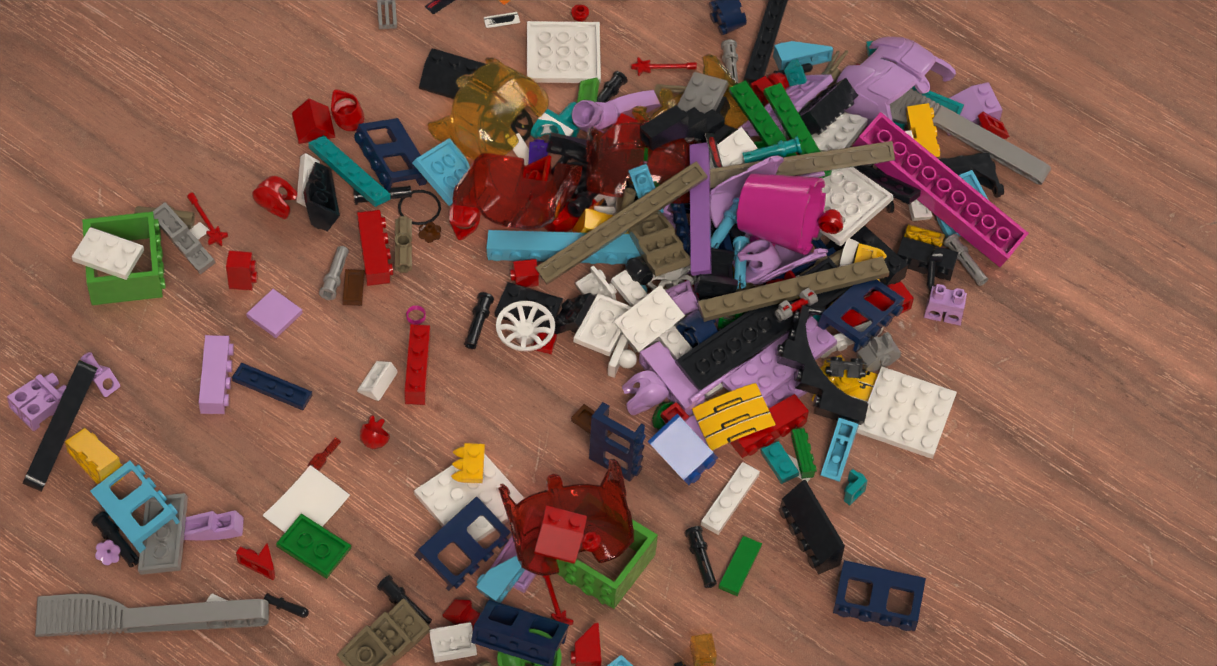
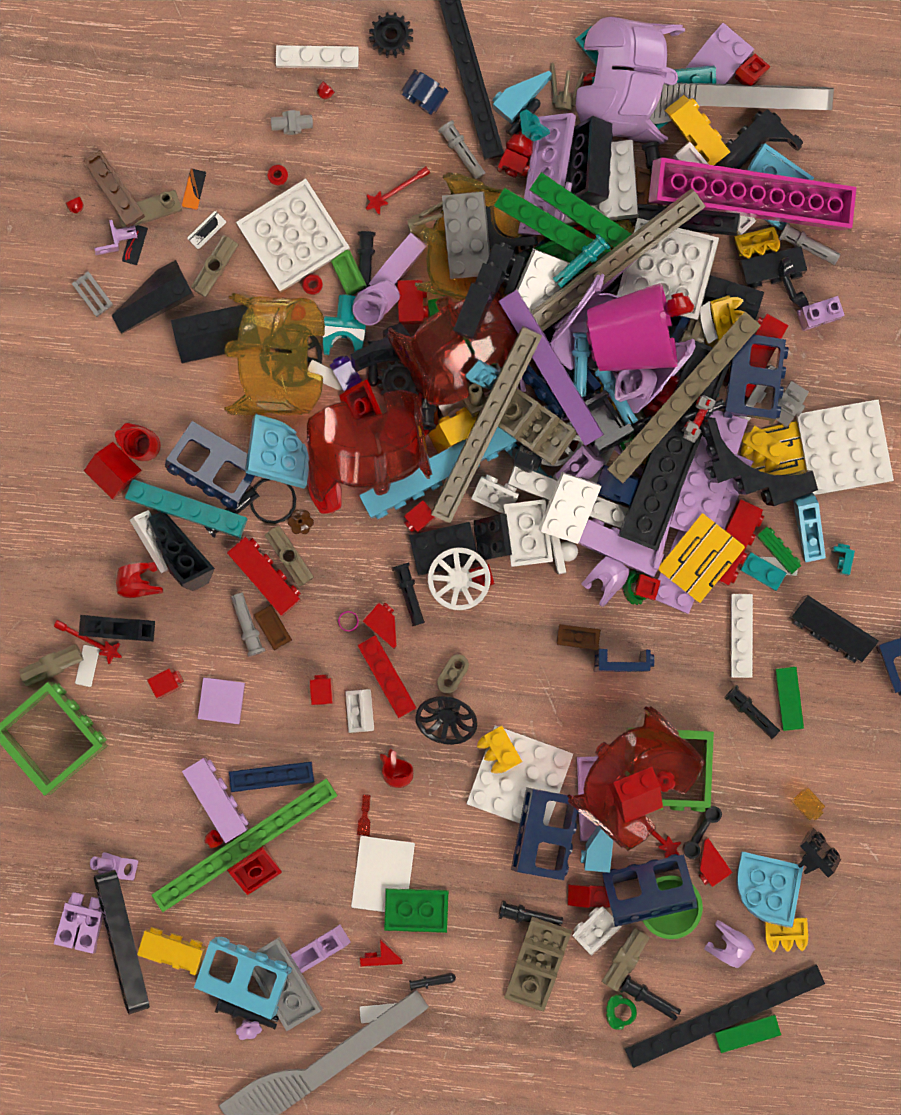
camera: 25 degrees left, 30 degrees up
(108, 253) = (41, 754): white plate -> none
(183, 238) = (85, 679): light grey slope -> none
(191, 401) = (213, 839): none -> red hinge
(206, 437) = (255, 870): none -> red slope
(212, 419) = (244, 845): none -> bright green plate
(232, 220) = (116, 628): none -> black arch
(358, 342) = (321, 690): none -> red brick
(442, 327) = (383, 623): none -> red slope
(443, 37) = (158, 294): none -> black wedge
(445, 415) = (448, 715): none -> black wheel
(471, 393) = (452, 673): none -> dark tan plate
(490, 39) = (207, 277): none -> dark tan piece
(555, 88) = (309, 278): none -> red plate
(614, 614) = (691, 848): none -> black bar
(683, 449) = (679, 622): slope -> none
(713, 150) = (525, 293): sticker -> none
(838, 366) = (761, 445): black hinge -> none

